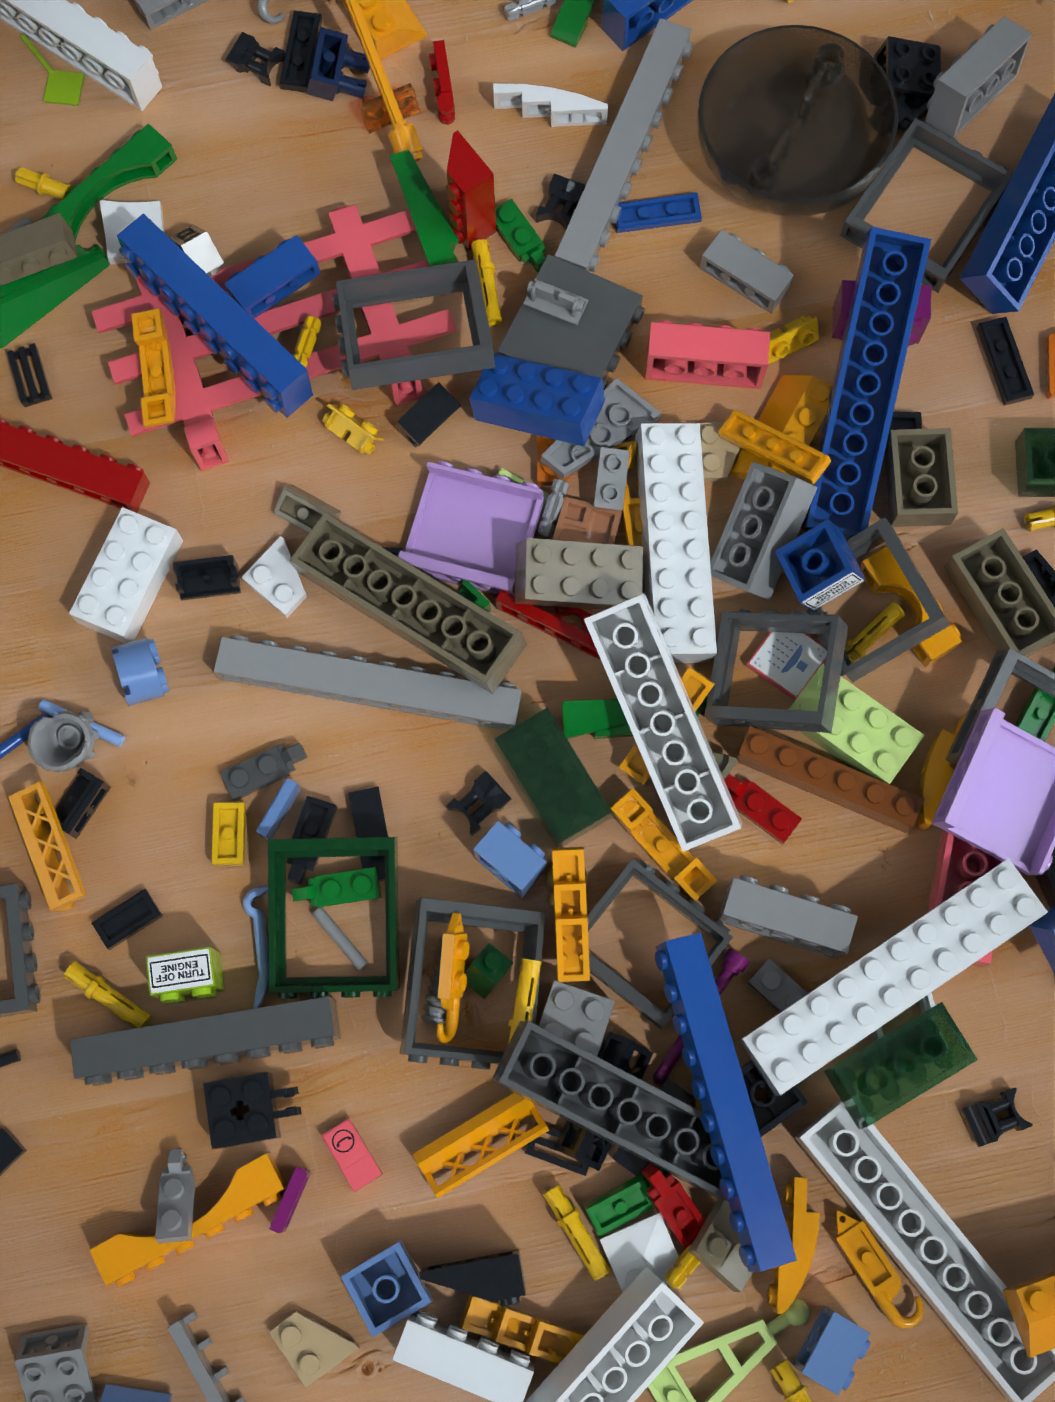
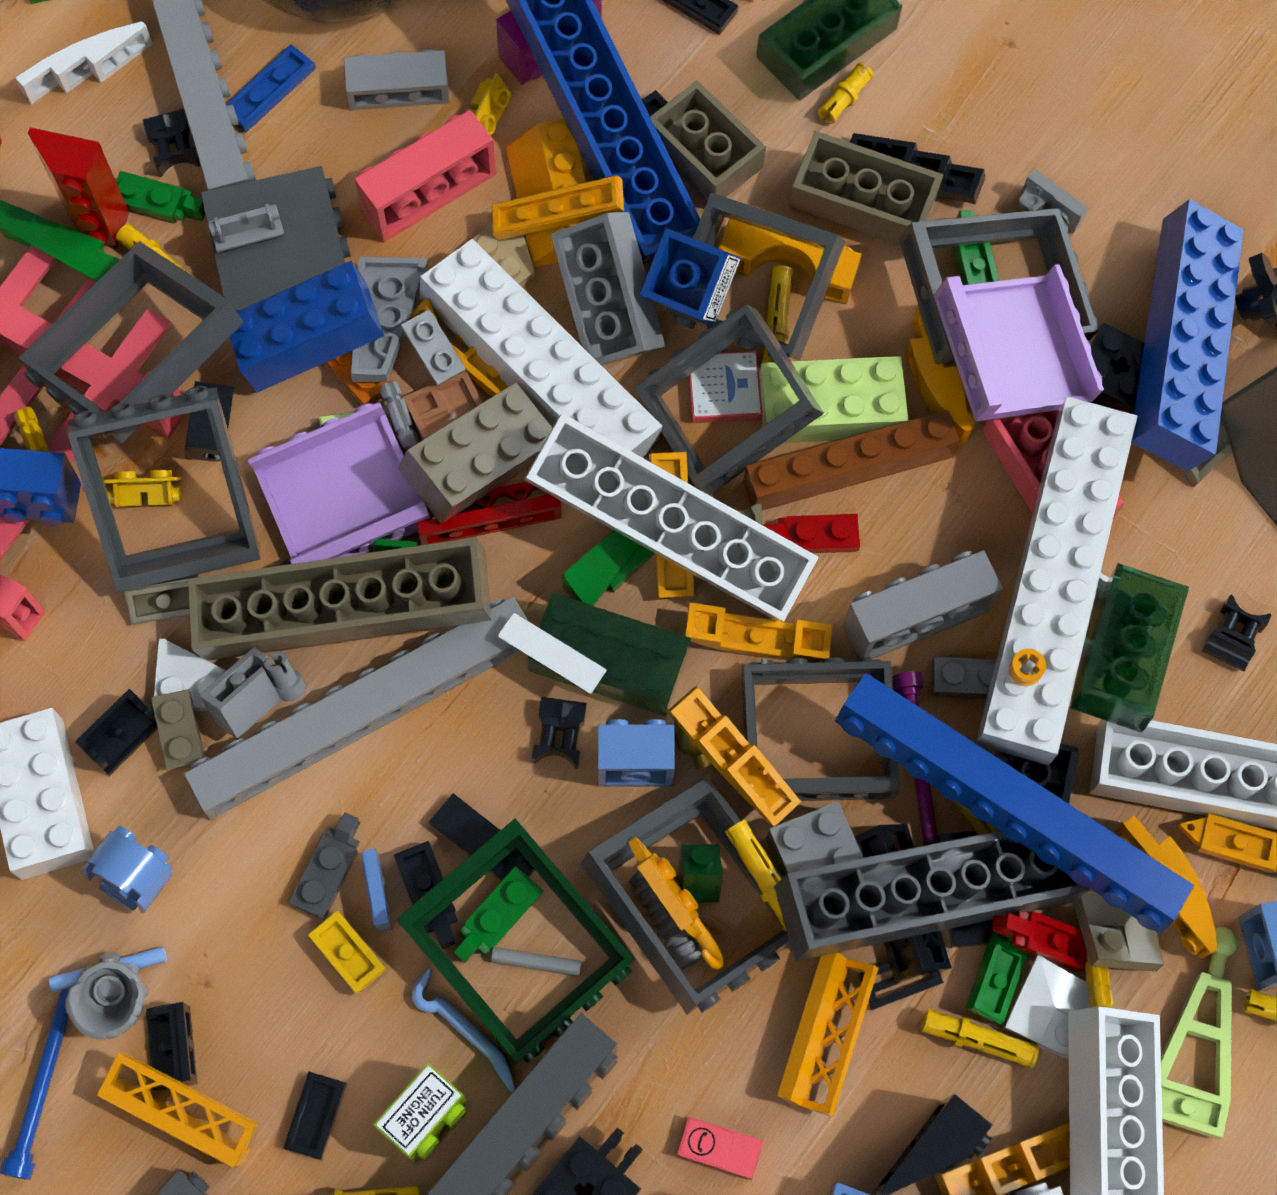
camera: 45 degrees left, 5 degrees down
(244, 604) = (178, 728): none -> dark tan plate
(306, 617) = (251, 690): none -> light grey hinge
(328, 490) = (176, 559): none -> dark grey window
(511, 748) = (552, 653): none -> white sticker
(816, 1028) = (1015, 666): none -> light orange bush

